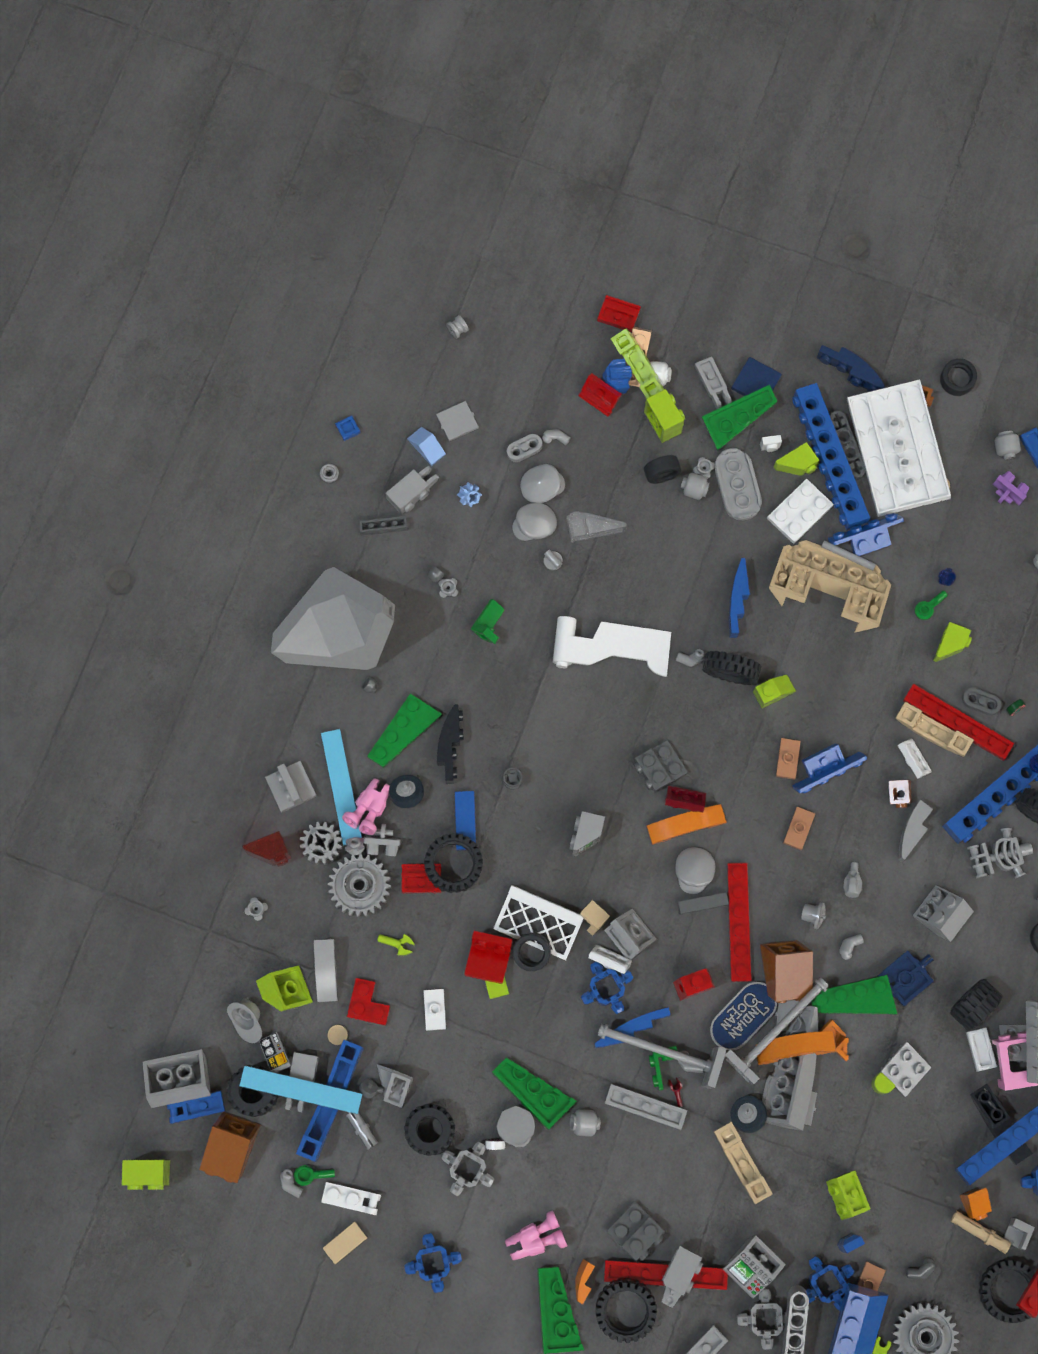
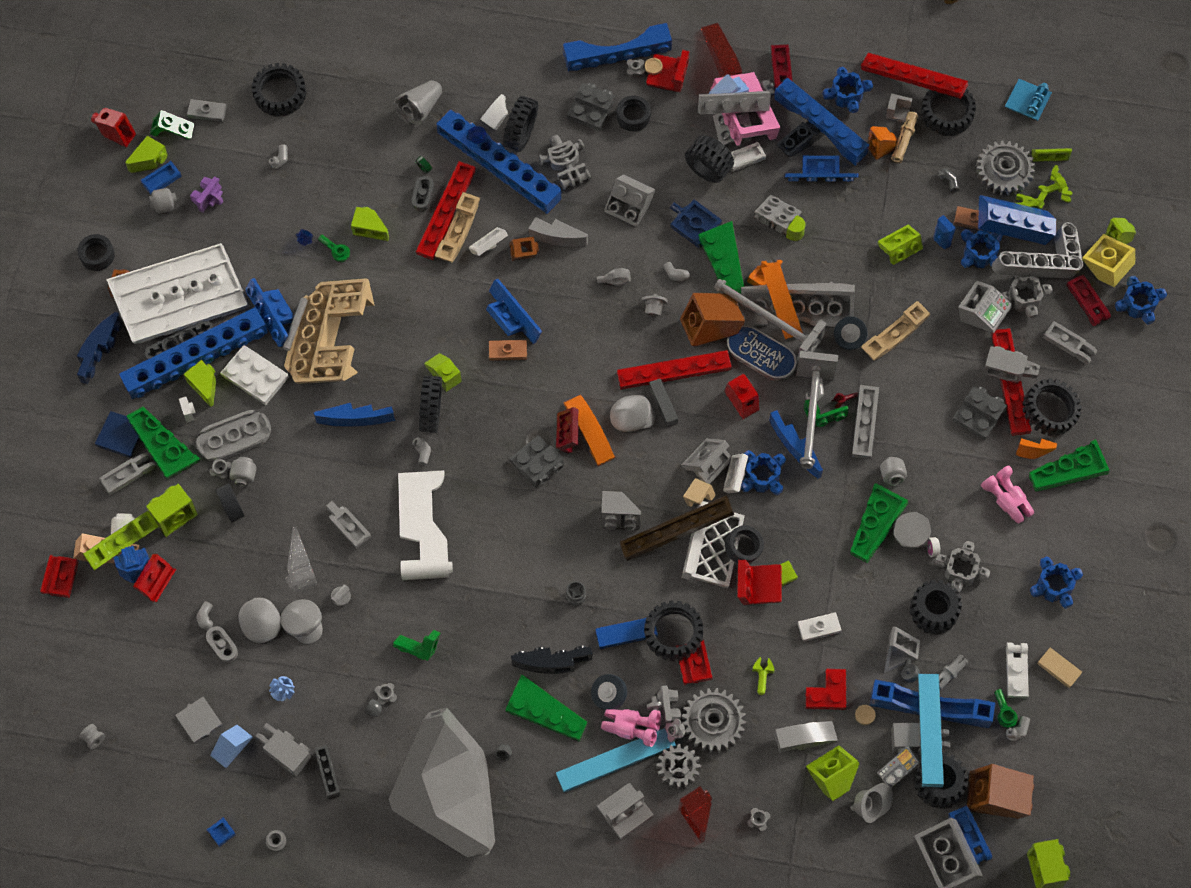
camera: 100 degrees left, 10 degrees down
(558, 886) = (676, 528): none -> dark brown plate
(623, 576) = (348, 525): none -> light grey hinge
(799, 828) = (573, 331): nougat plate -> none
(952, 1128) = (821, 167): none -> blue bracket

